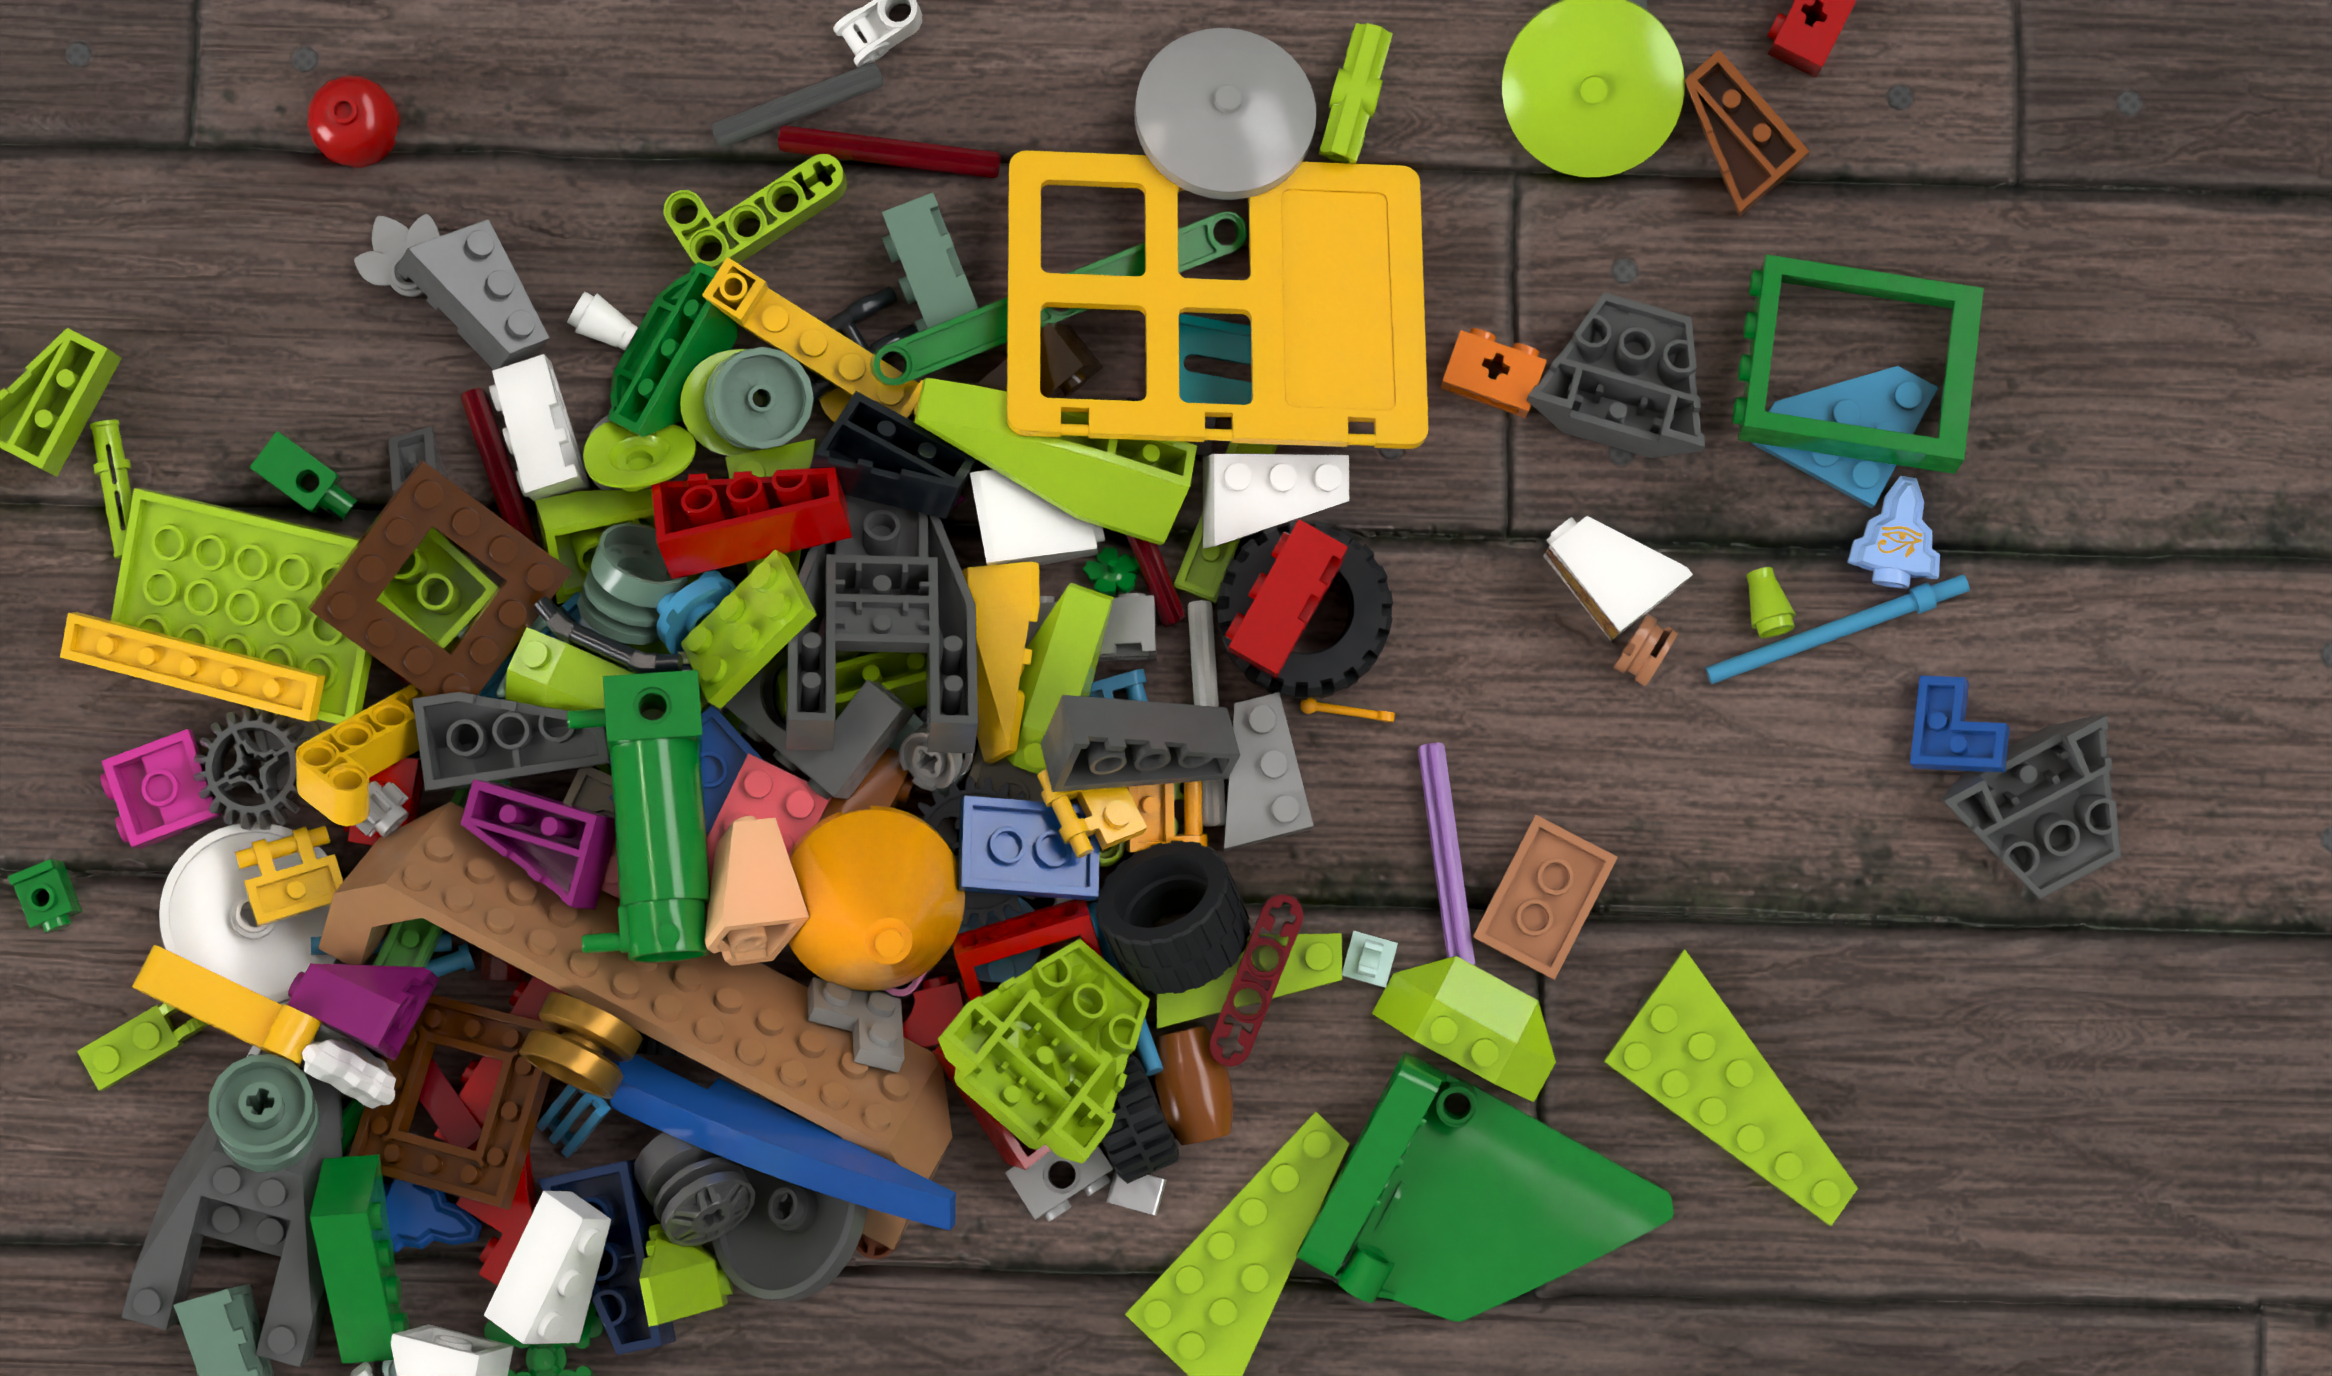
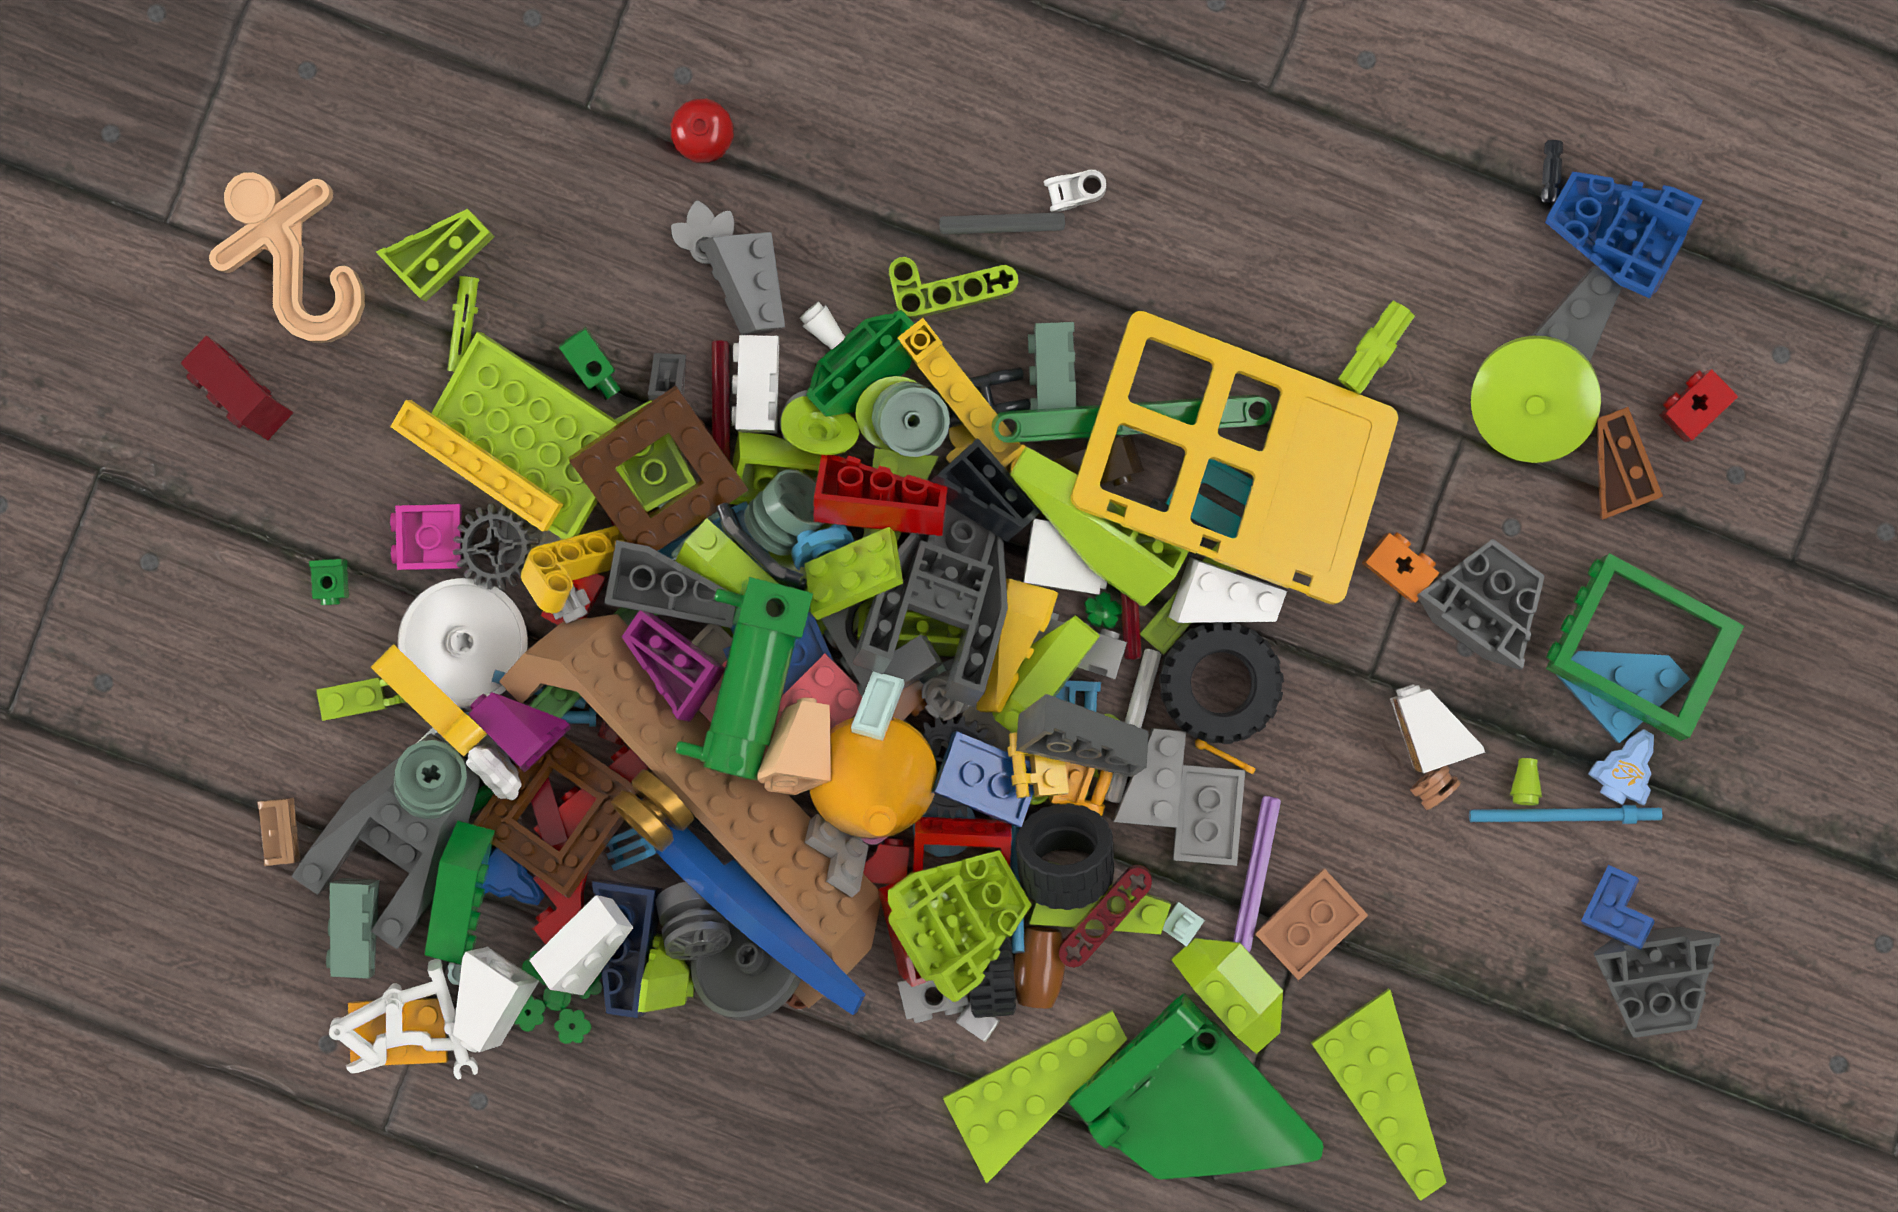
camera: 10 degrees right, 5 degrees up
(89, 1263) = (279, 831): none -> medium nougat hinge
(293, 889) = (496, 636): yellow plate -> none
(840, 794) = (877, 705): none -> light aqua tile
(889, 151) = (1052, 276): dark red axle -> none
(1225, 113) = (1284, 331): light grey dish -> none
(1286, 598) = (1213, 676): red wedge -> none
(1353, 797) = (1209, 815): none -> light grey plate

